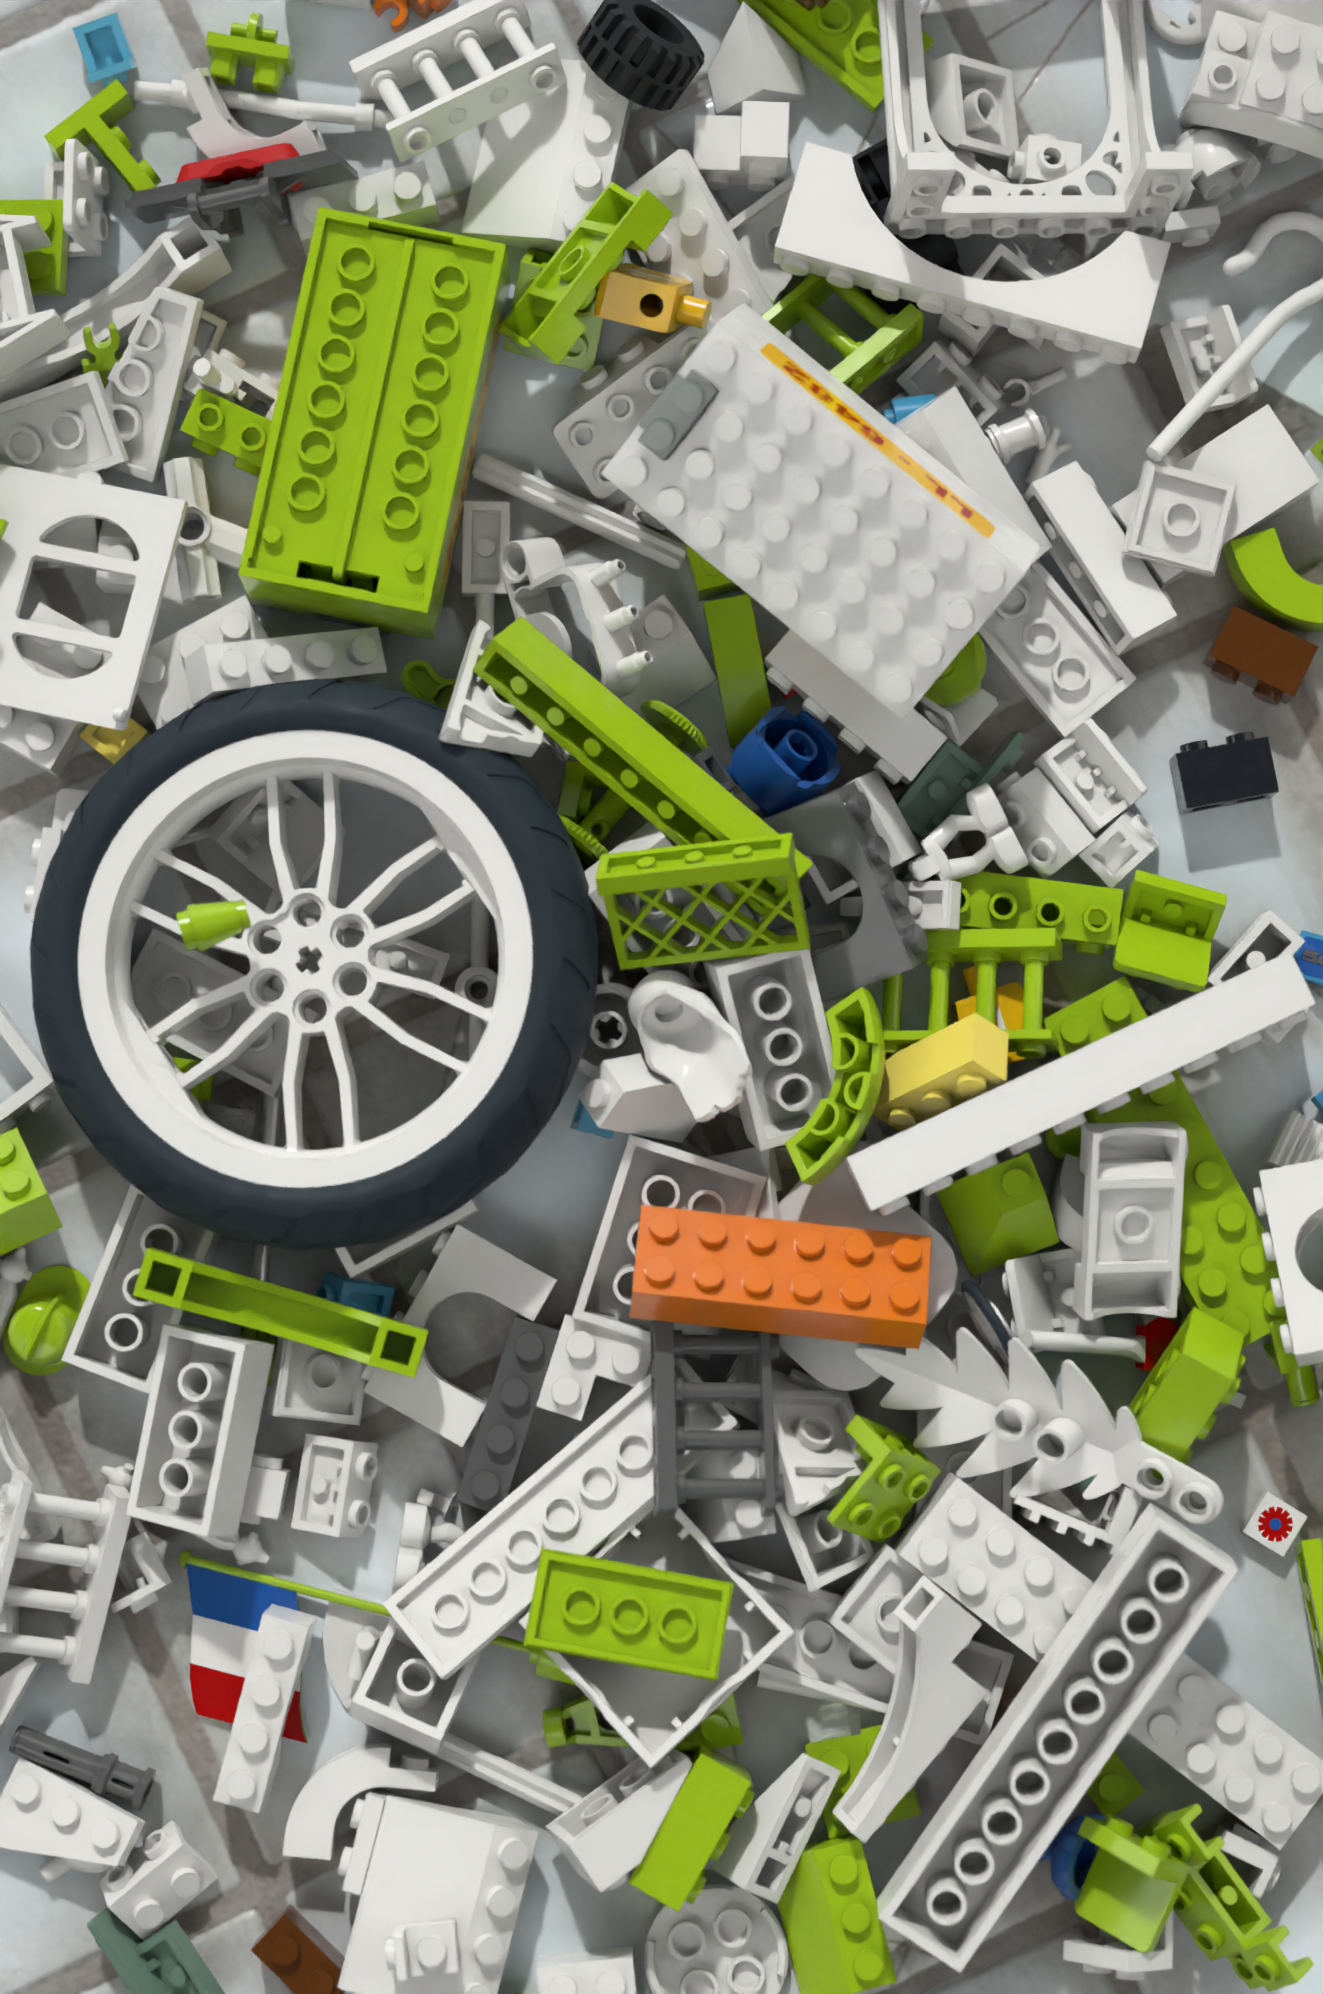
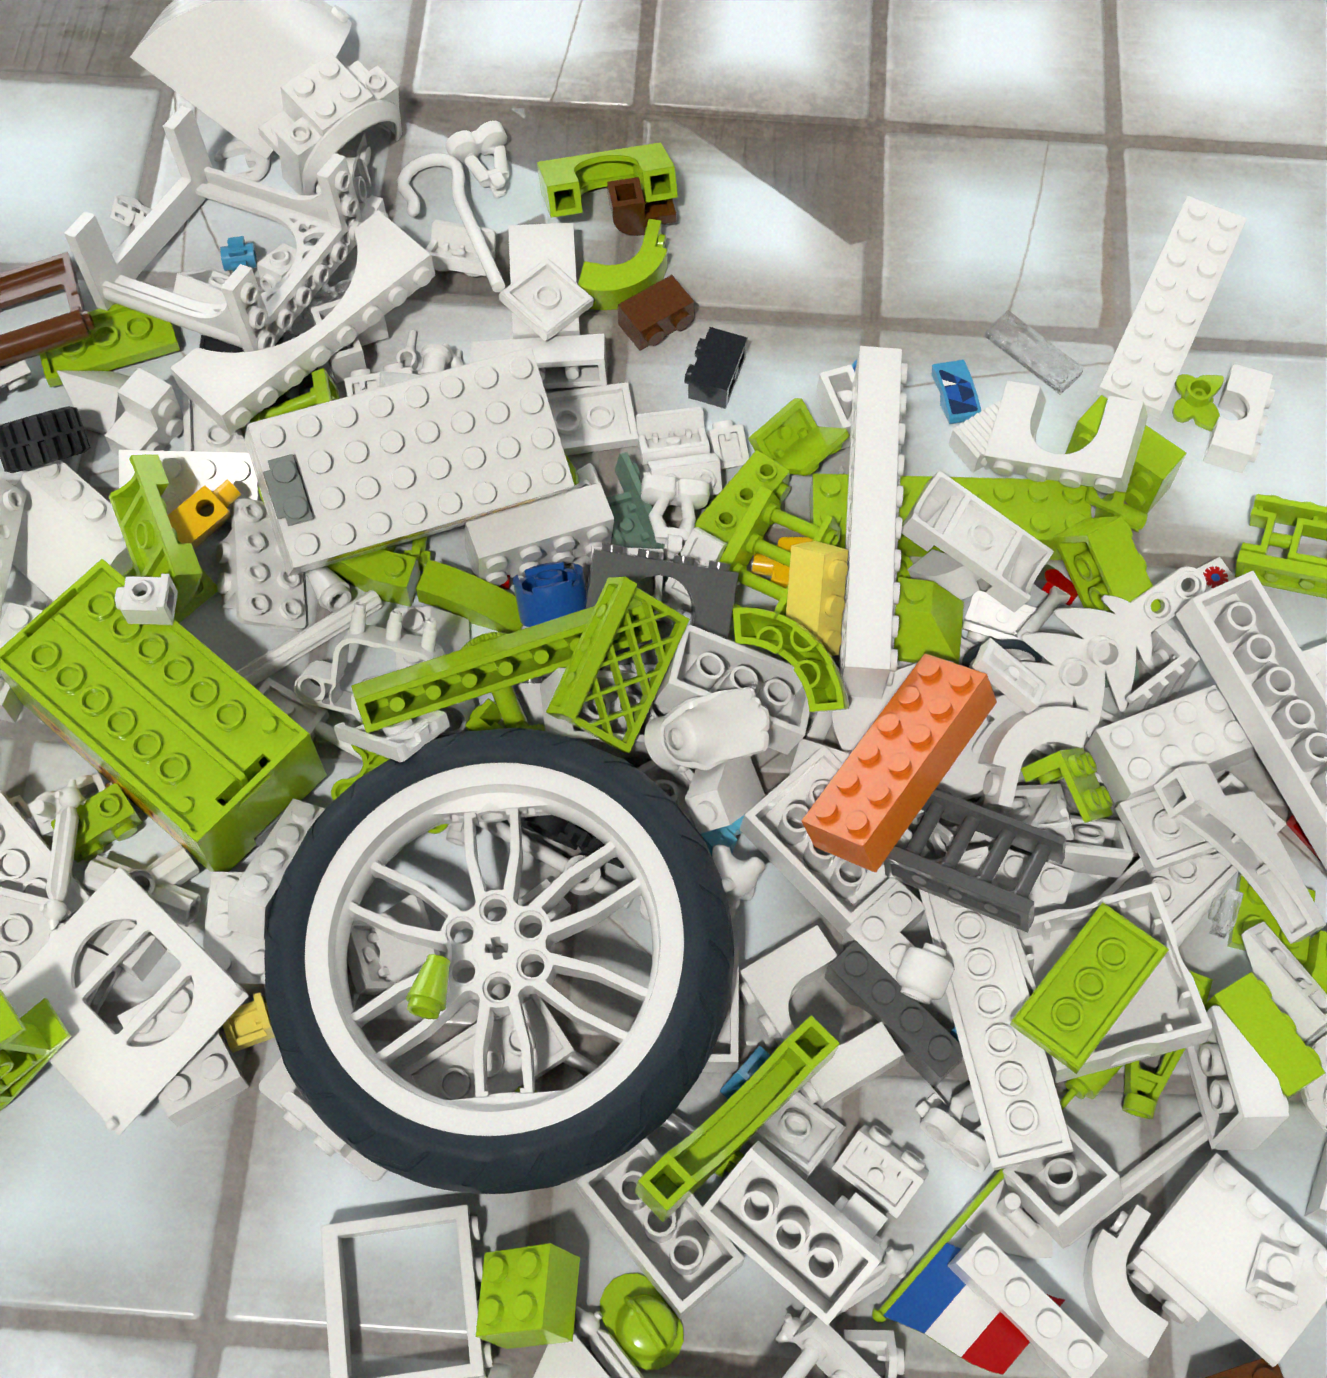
camera: 60 degrees left, 20 degrees down
(169, 428) = (62, 854): none -> white wheel
(479, 350) = (147, 600): none -> white brick
(552, 1427) = (924, 973): none -> white head
(553, 1159) = (737, 875): none -> white animal
(900, 1397) = (1018, 737): none -> white arch
(950, 1348) = (1009, 676): none -> white plate
(1038, 99) = (238, 253): none -> dark azure gear

